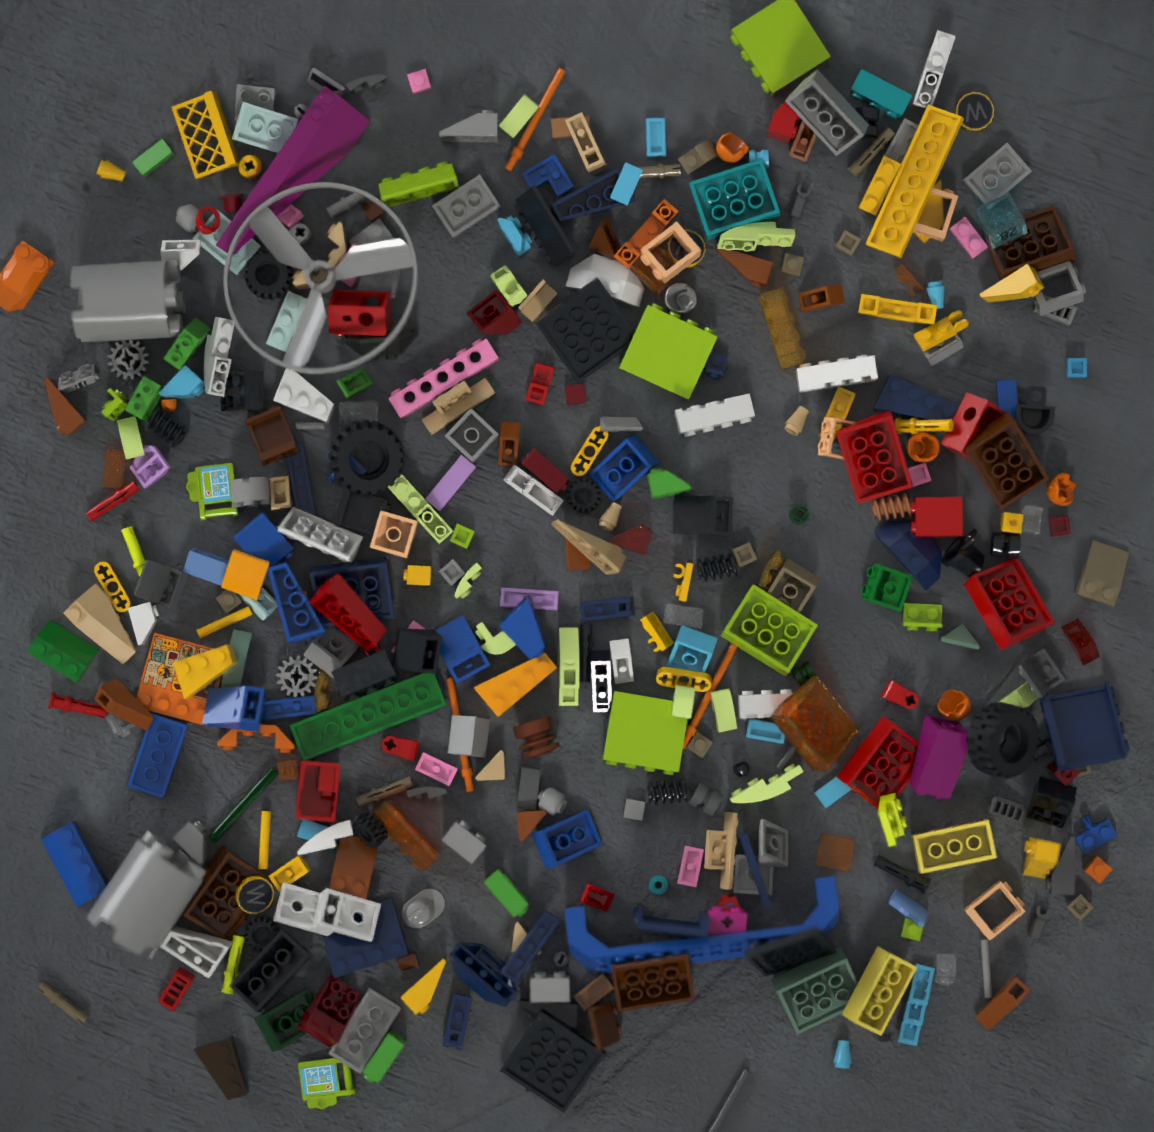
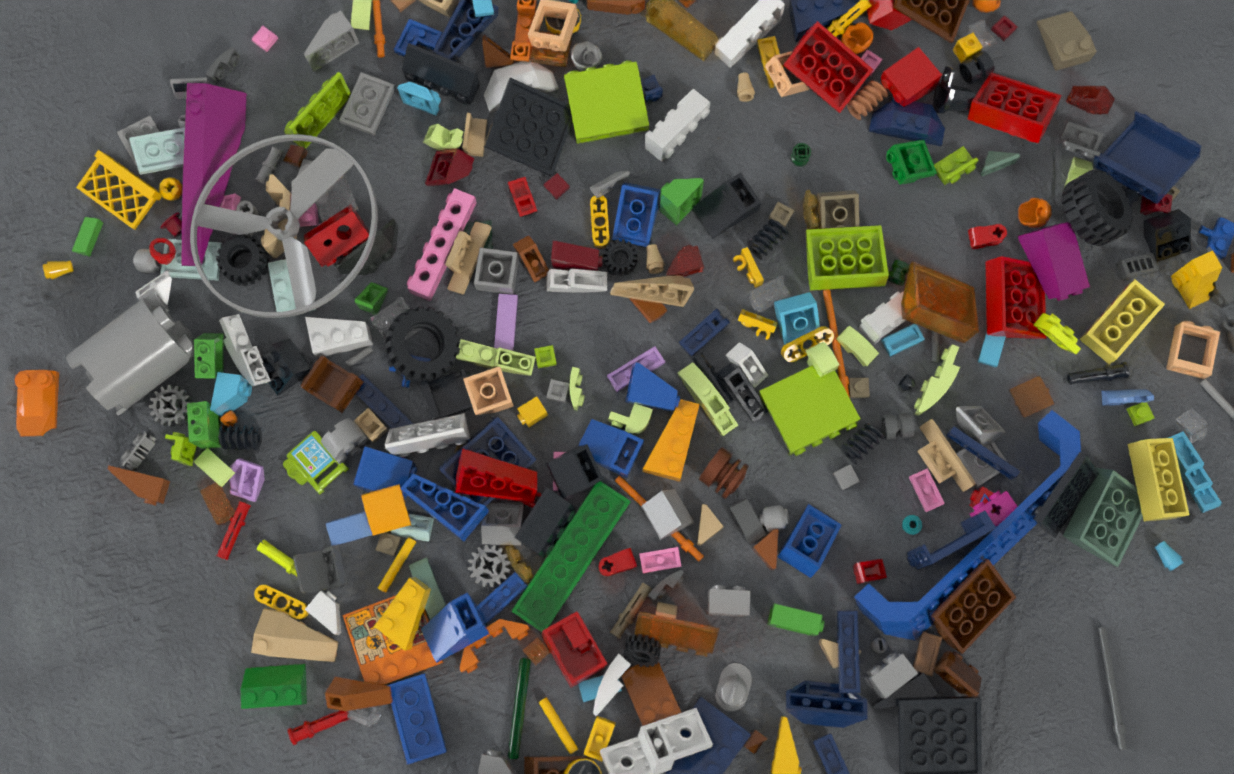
camera: 35 degrees left, 10 degrees down
(411, 812) = (666, 610): none -> tan slope

